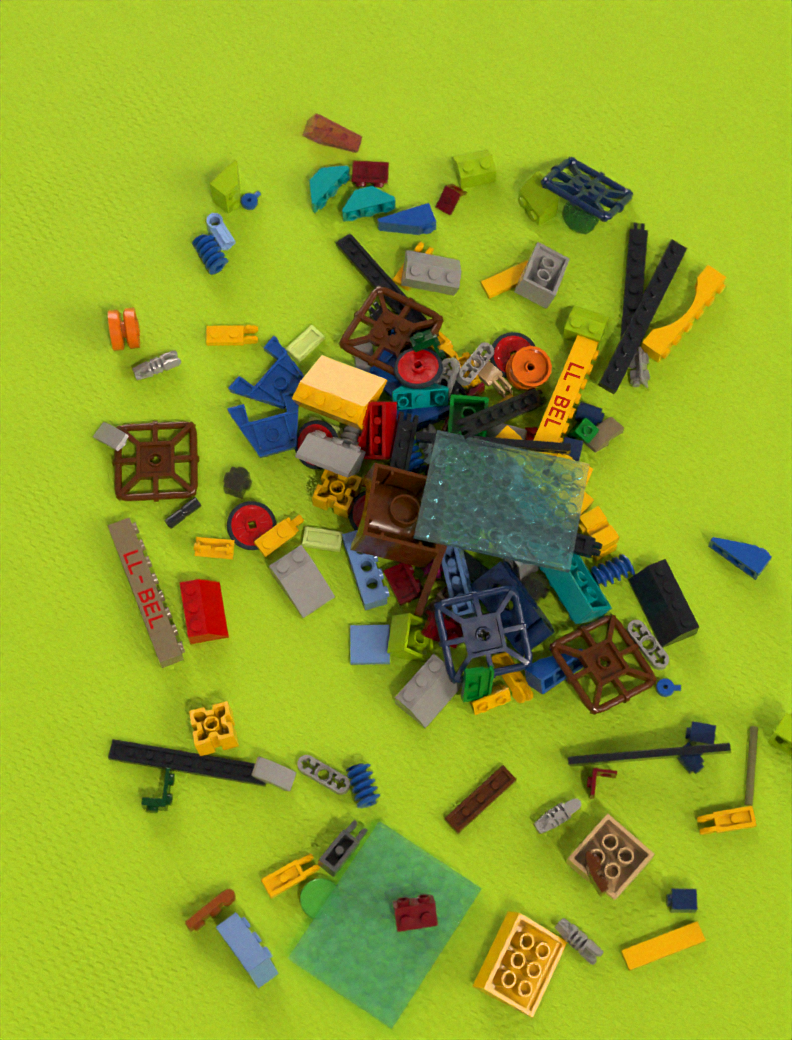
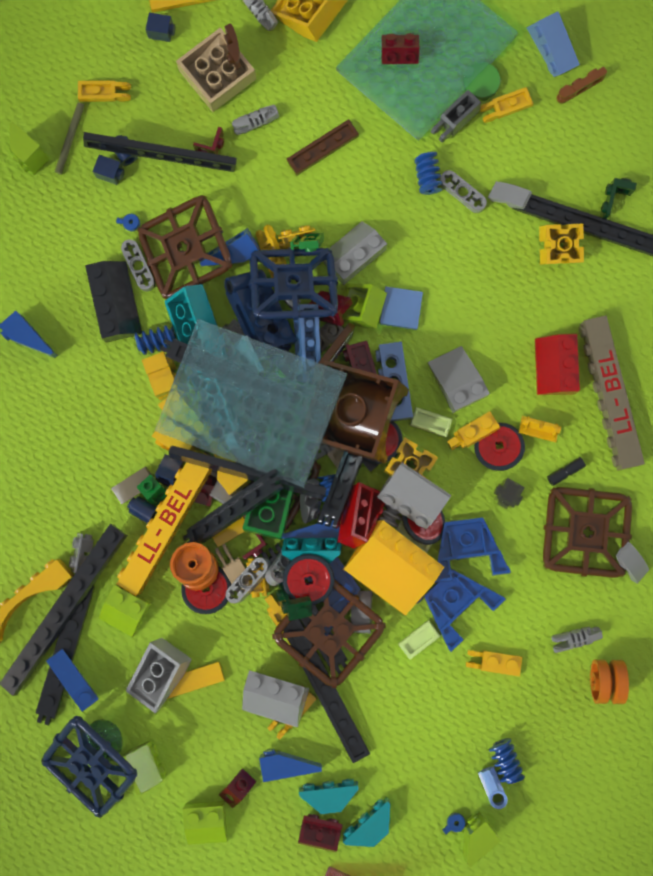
camera: 170 degrees left, 15 degrees up
(619, 257) = (72, 680): none -> blue slope

